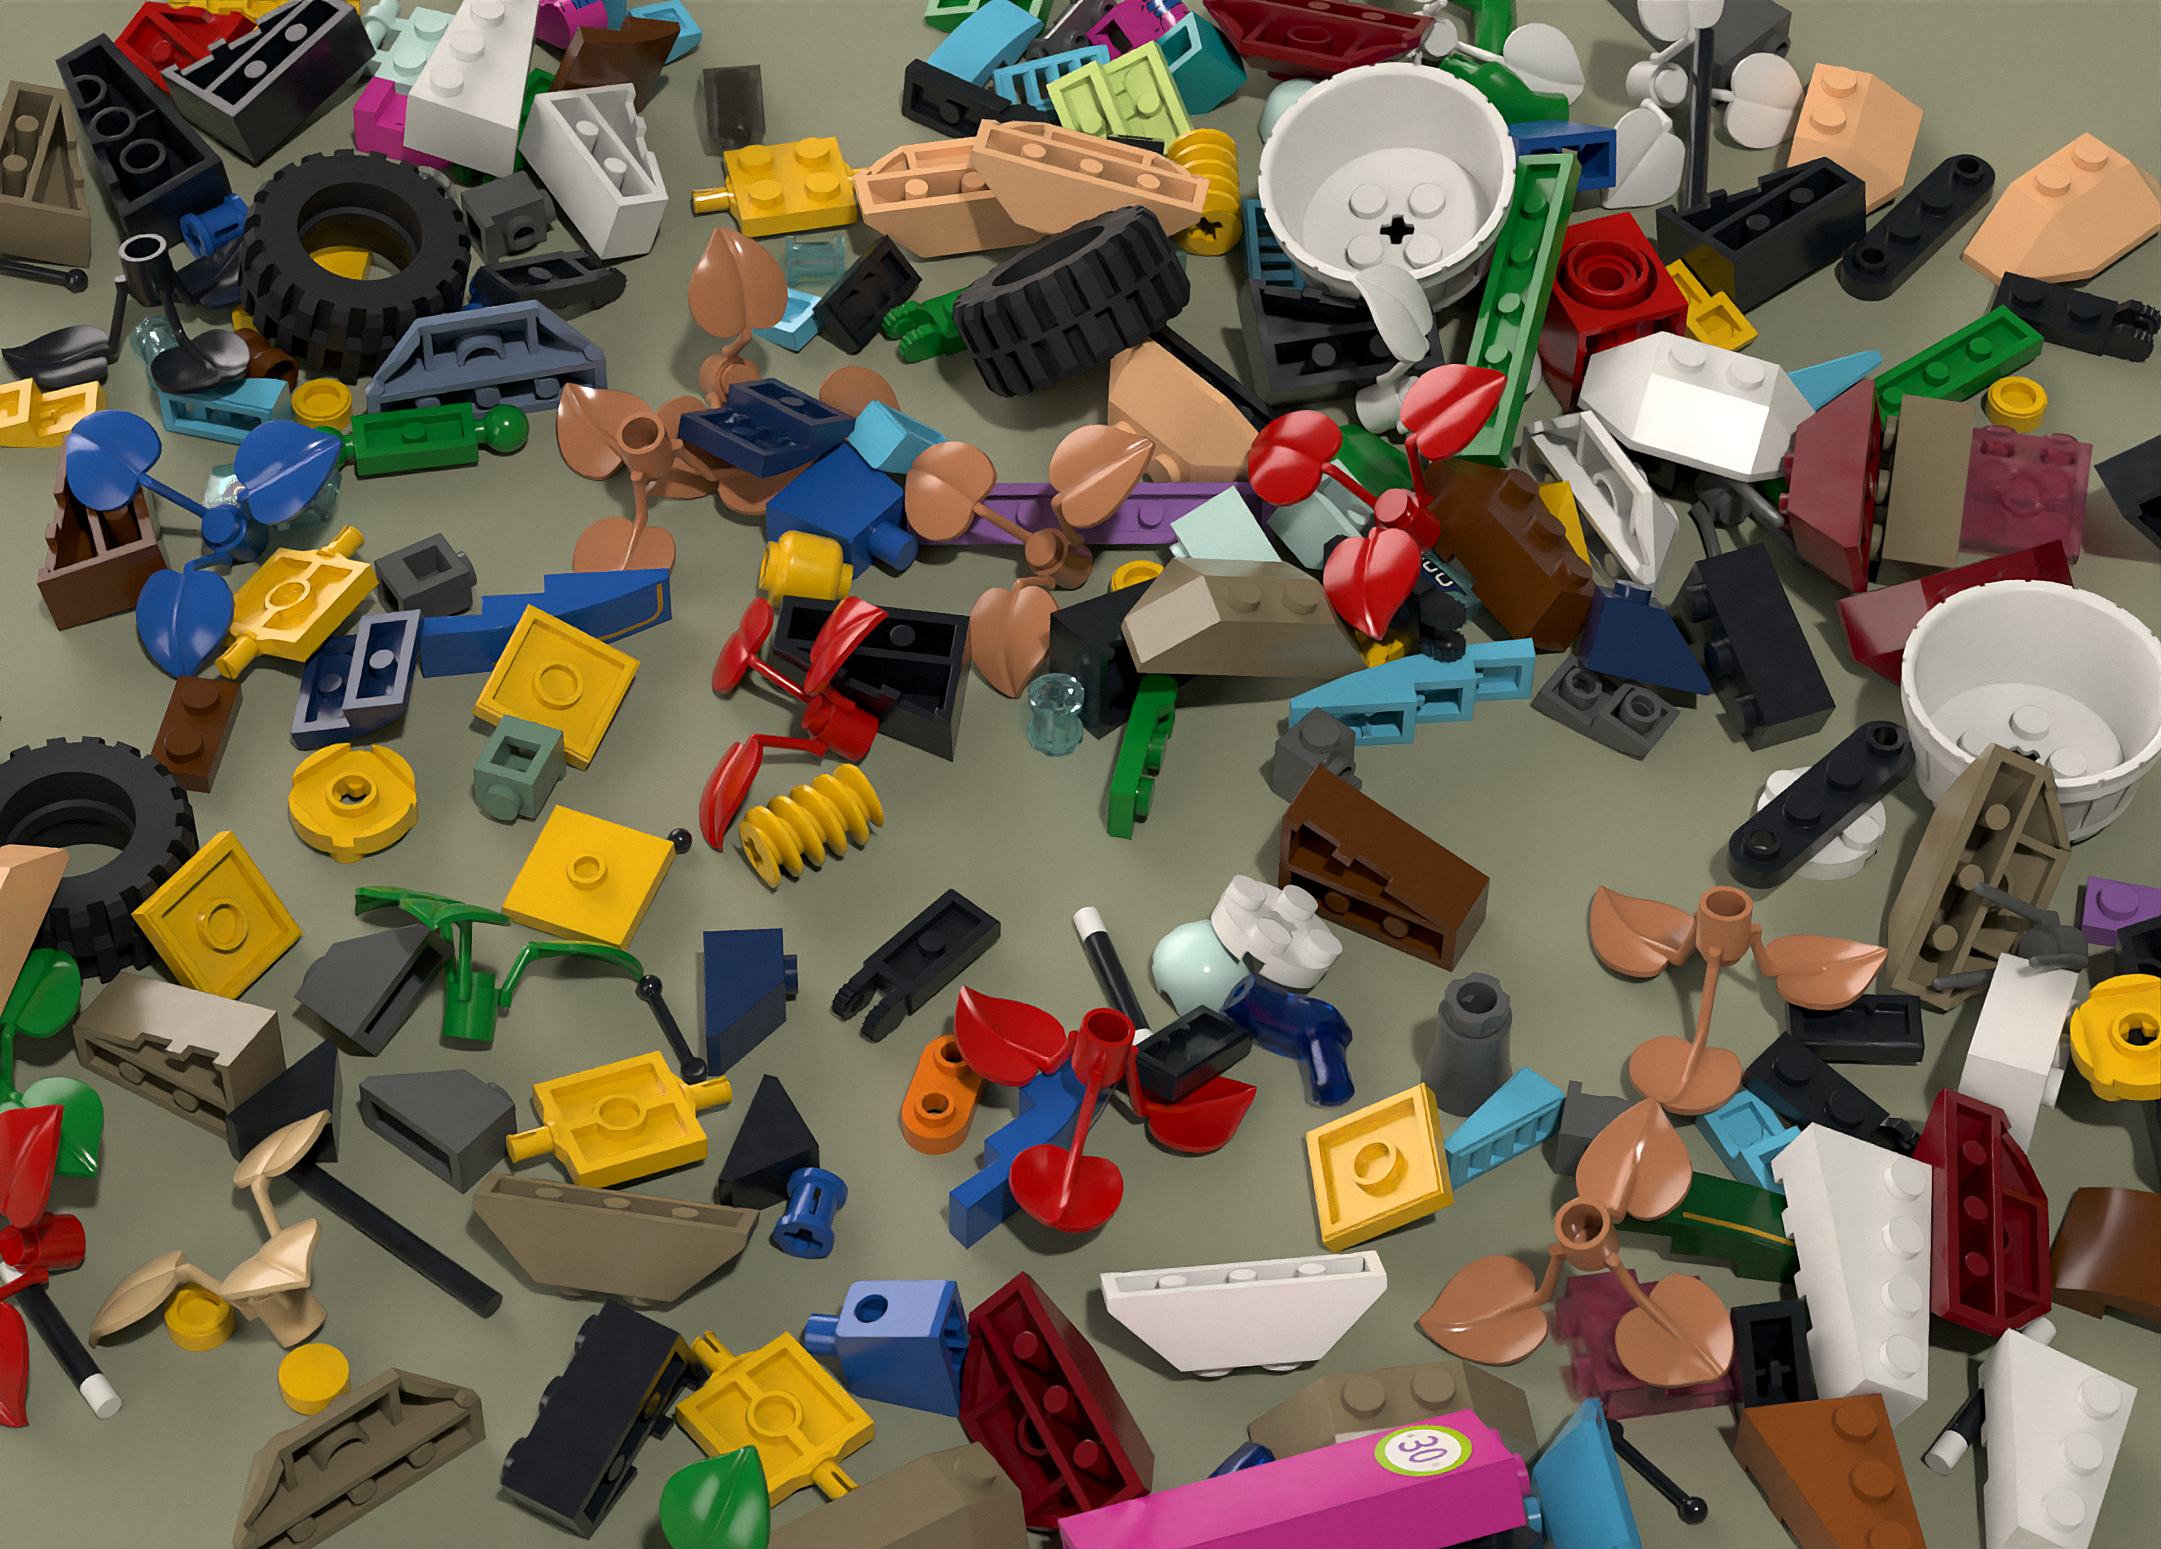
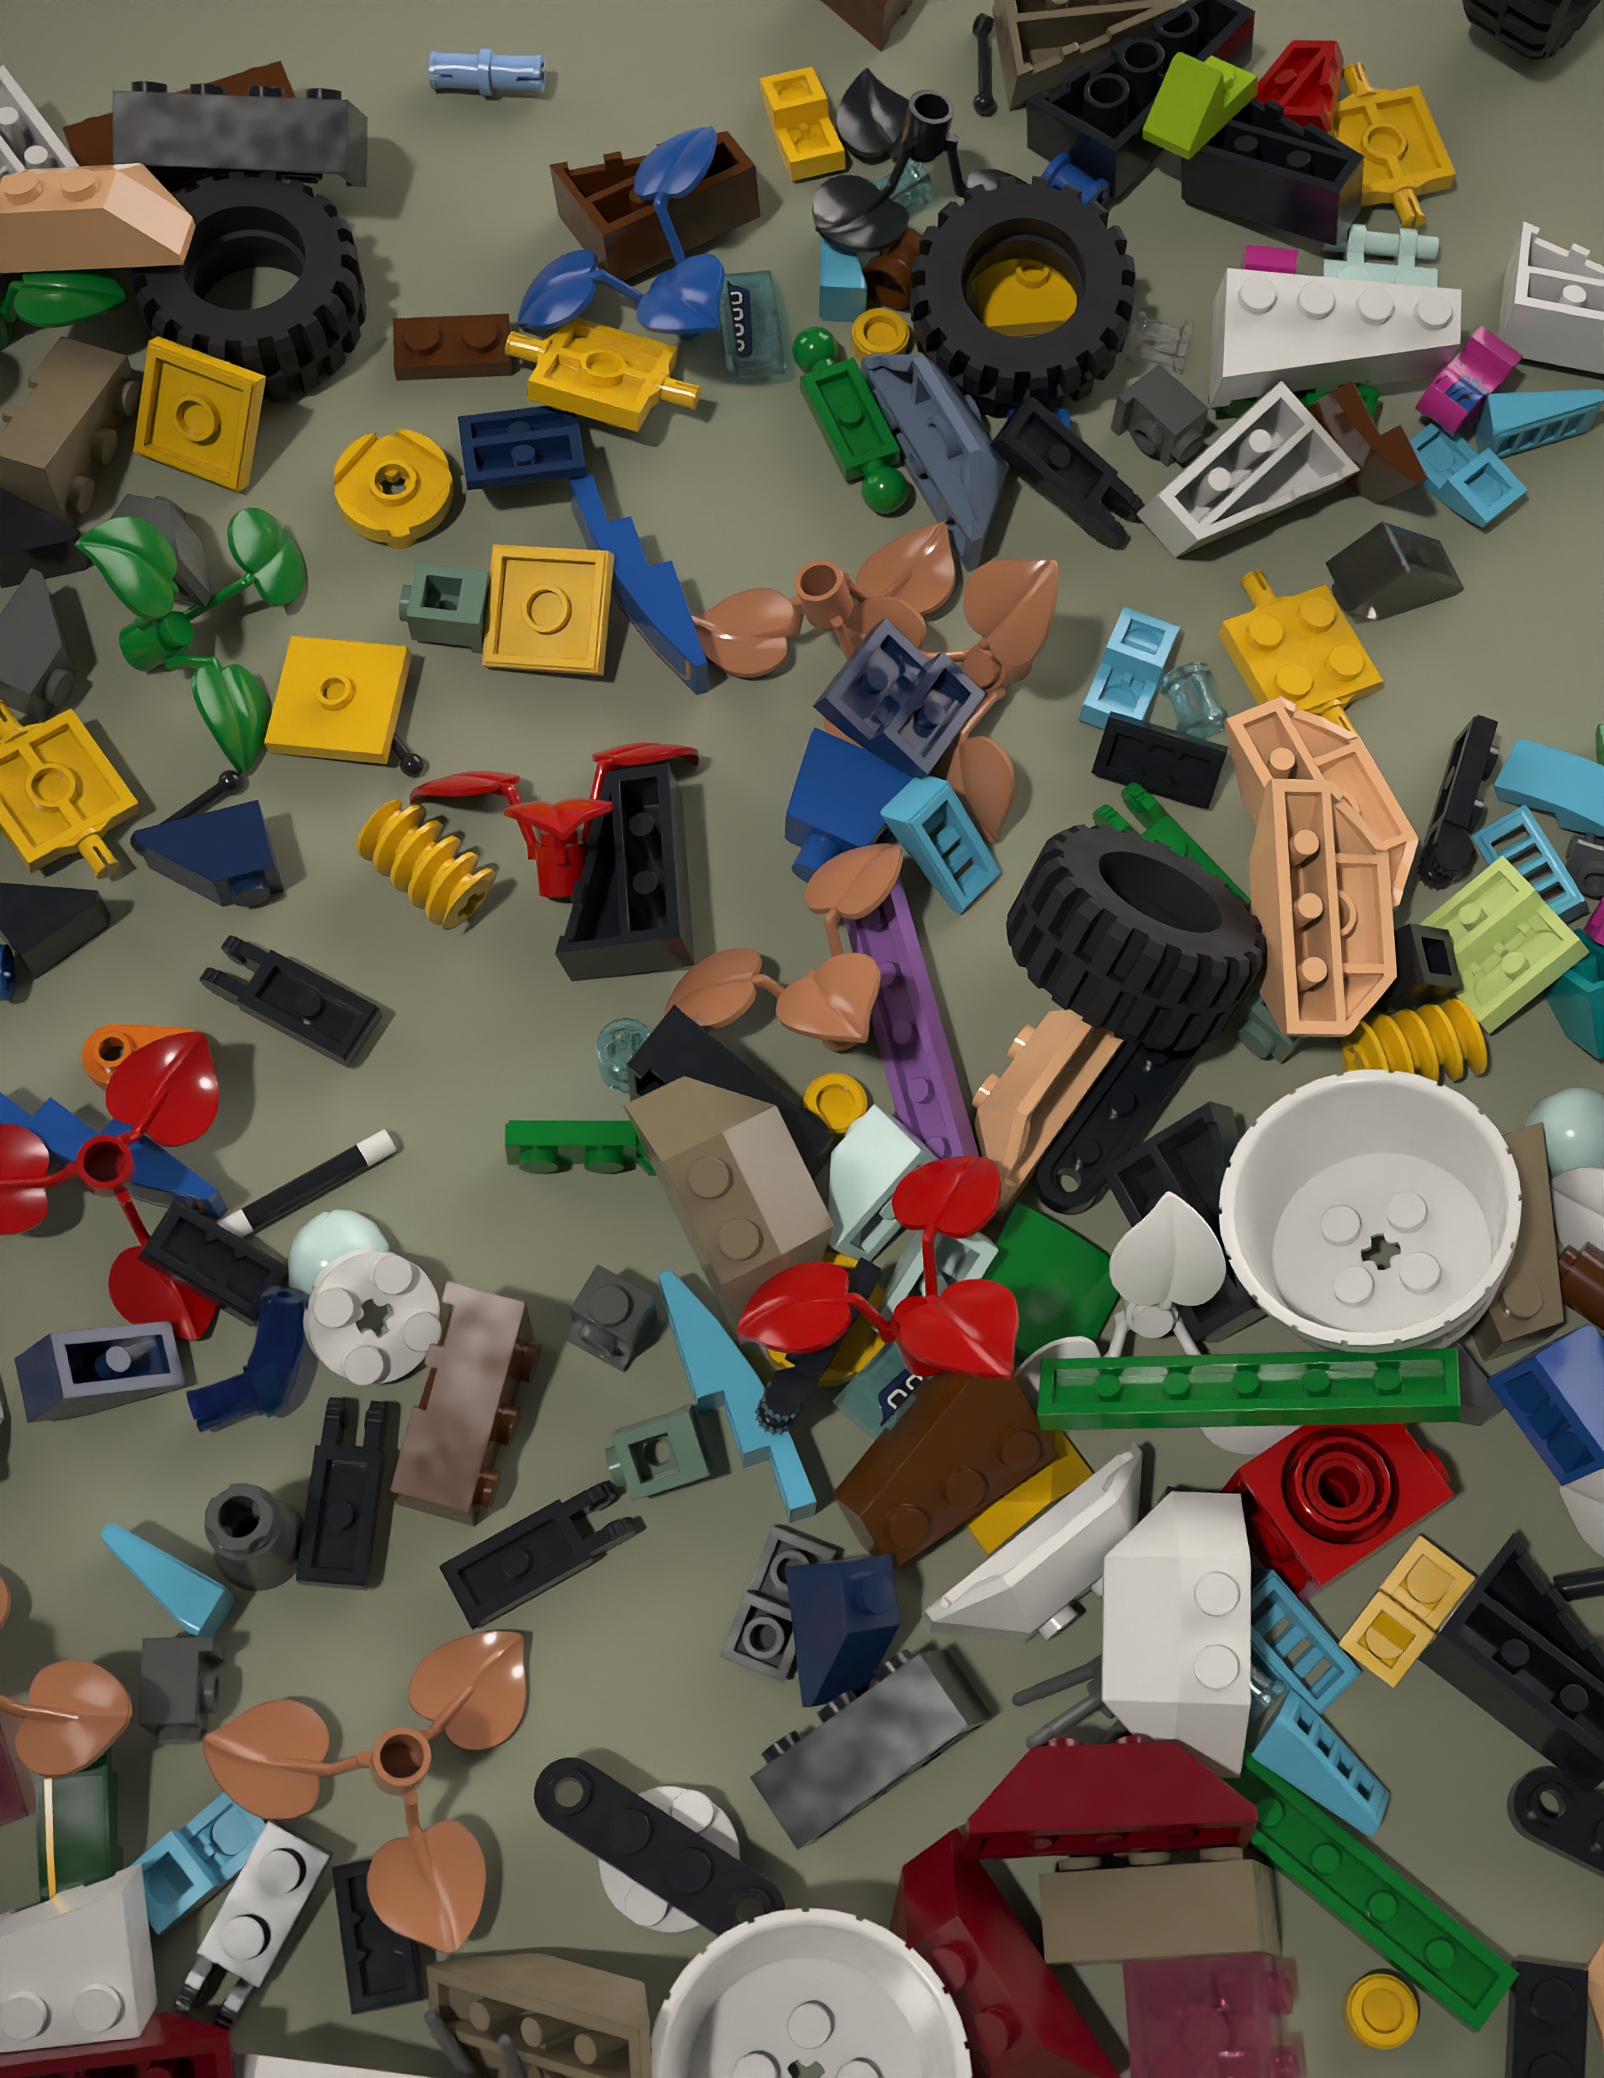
camera: 75 degrees right, 20 degrees up
(200, 89) = (1196, 103): none -> lime slope
(426, 578) = (658, 472): dark grey brick -> none
(804, 567) = (754, 788): yellow head -> none
(1277, 1160) = (97, 1369): none -> dark blue slope
(1379, 1168) = (92, 1471): yellow plate -> none
(1422, 985) = (343, 1501): none -> black hinge
(1455, 762) = (687, 1460): none -> sand green brick
(1529, 867) = (531, 1555): none -> black hinge

